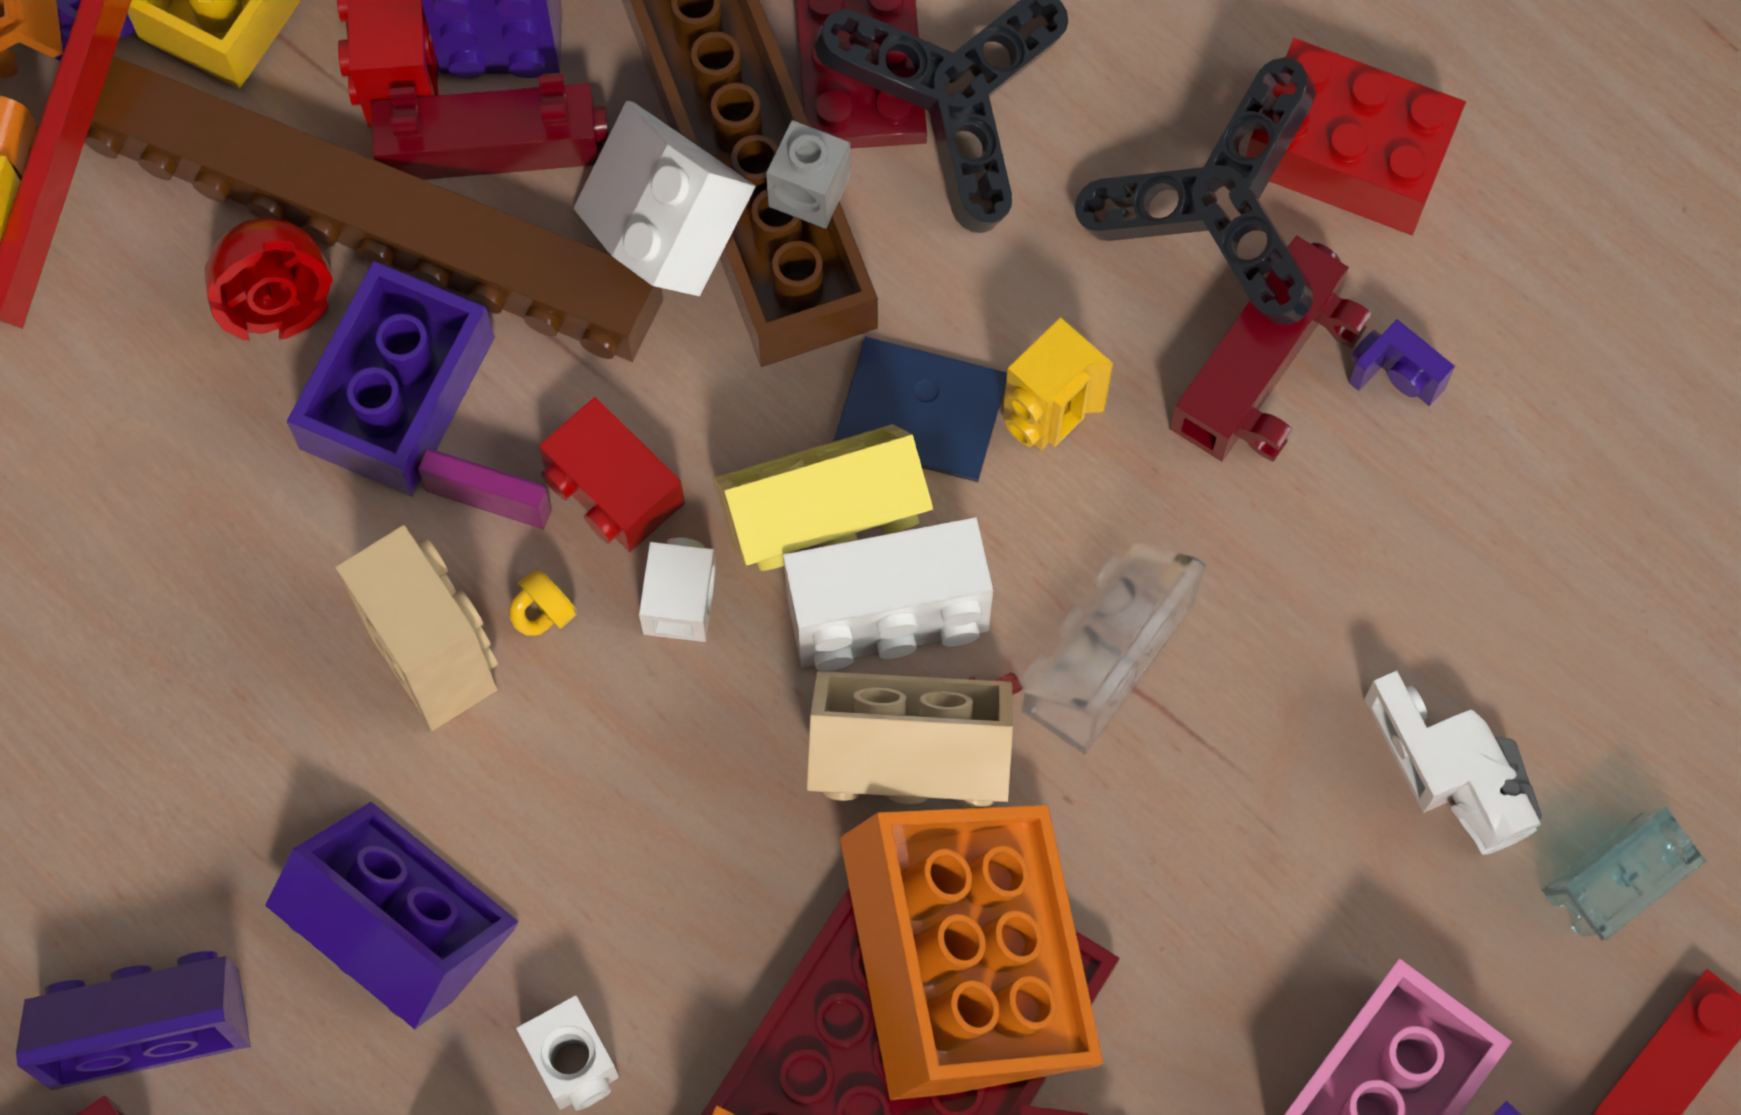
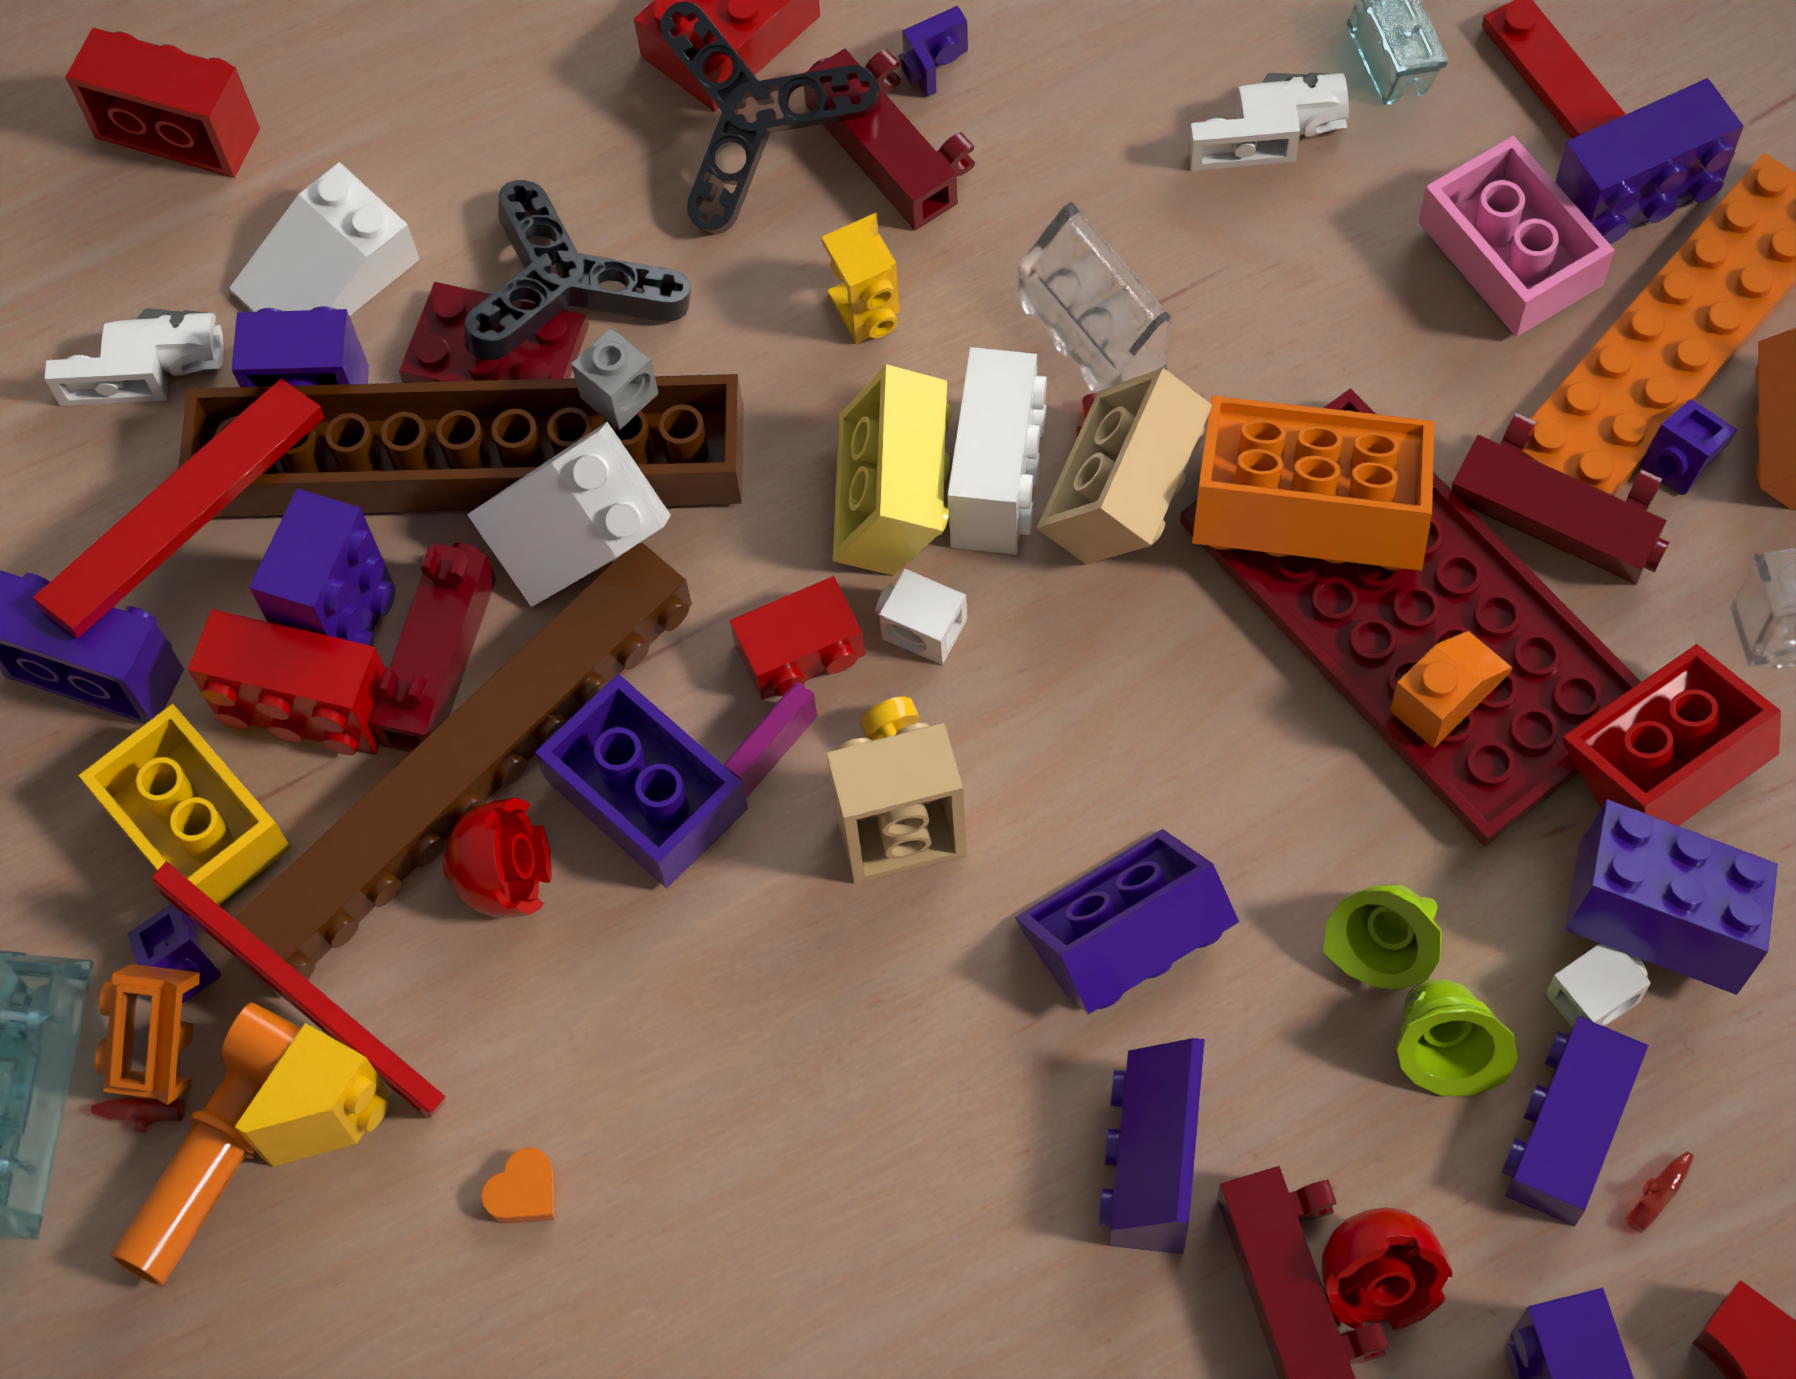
camera: 65 degrees left, 5 degrees down
(554, 1030) = (1283, 832): white brick -> none
(934, 397) = (807, 398): dark blue piece -> none

